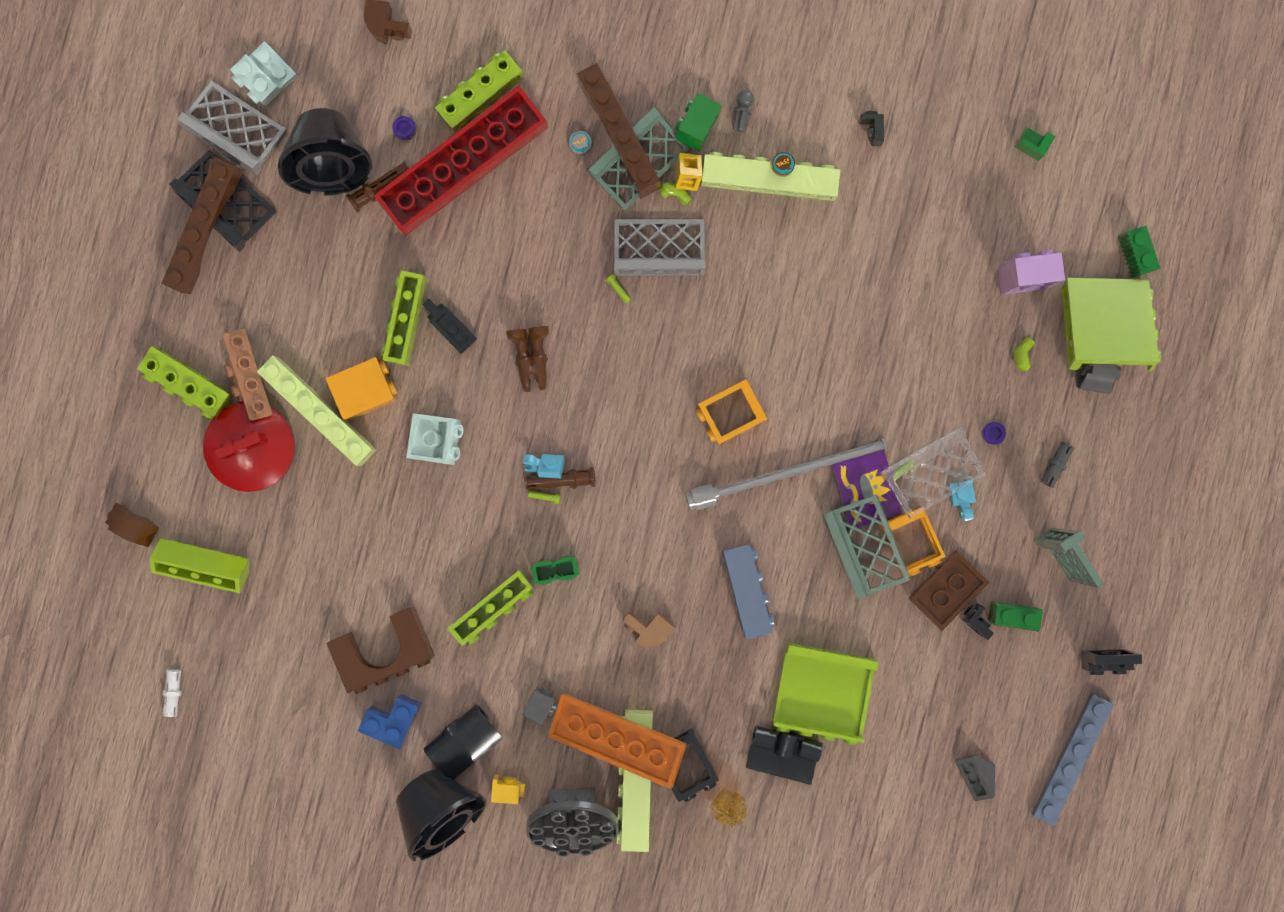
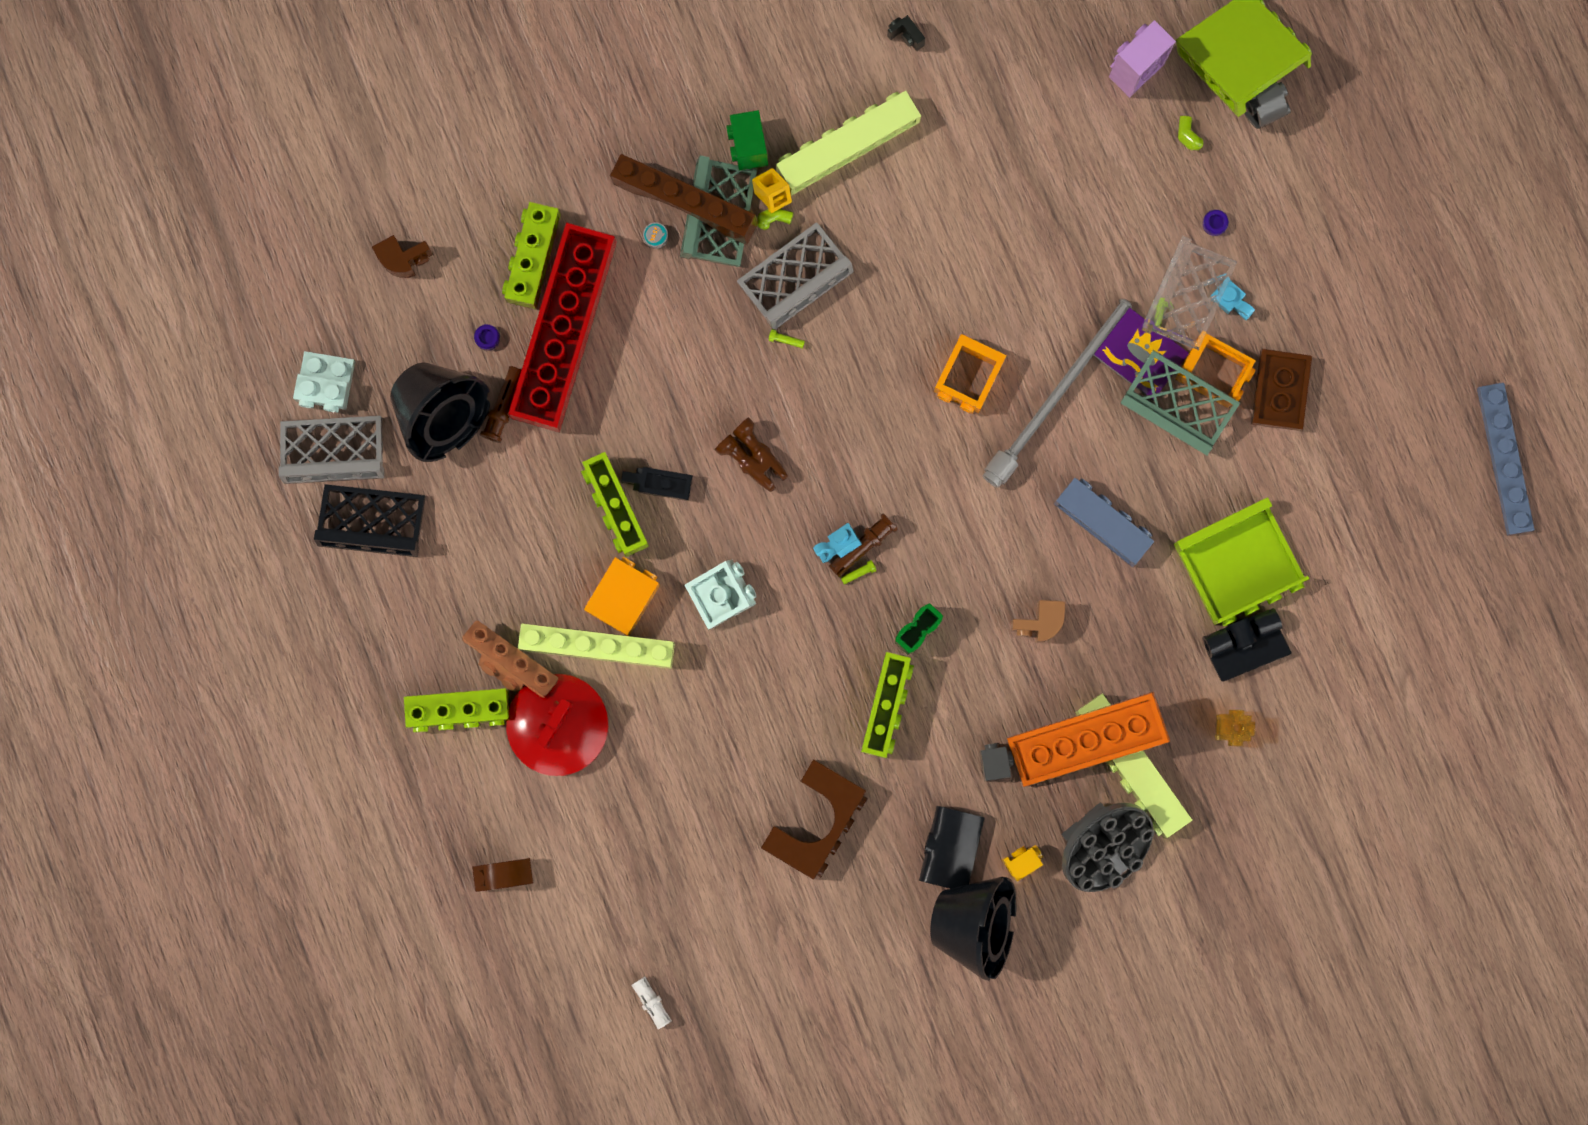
camera: 35 degrees left, 5 degrees down
(188, 255) = (370, 556): reddish brown arch -> none
(199, 565) = (593, 864): lime brick -> none
(391, 727) = (879, 880): blue brick -> none
(708, 783) = (1197, 723): black window -> none
(745, 100) = (774, 91): dark grey axle -> none
(783, 164) = (852, 122): reddish brown tile -> none
(978, 776) = (1433, 535): dark grey slope -> none
(979, 625) = (1331, 401): black bracket -> none
(1015, 616) = (1357, 368): green brick -> none
(1057, 464) = (1292, 208): dark grey pin -> none
(1070, 556) = (1363, 277): sand green fence -> none
(1109, 660) = (1474, 342): black plate -> none

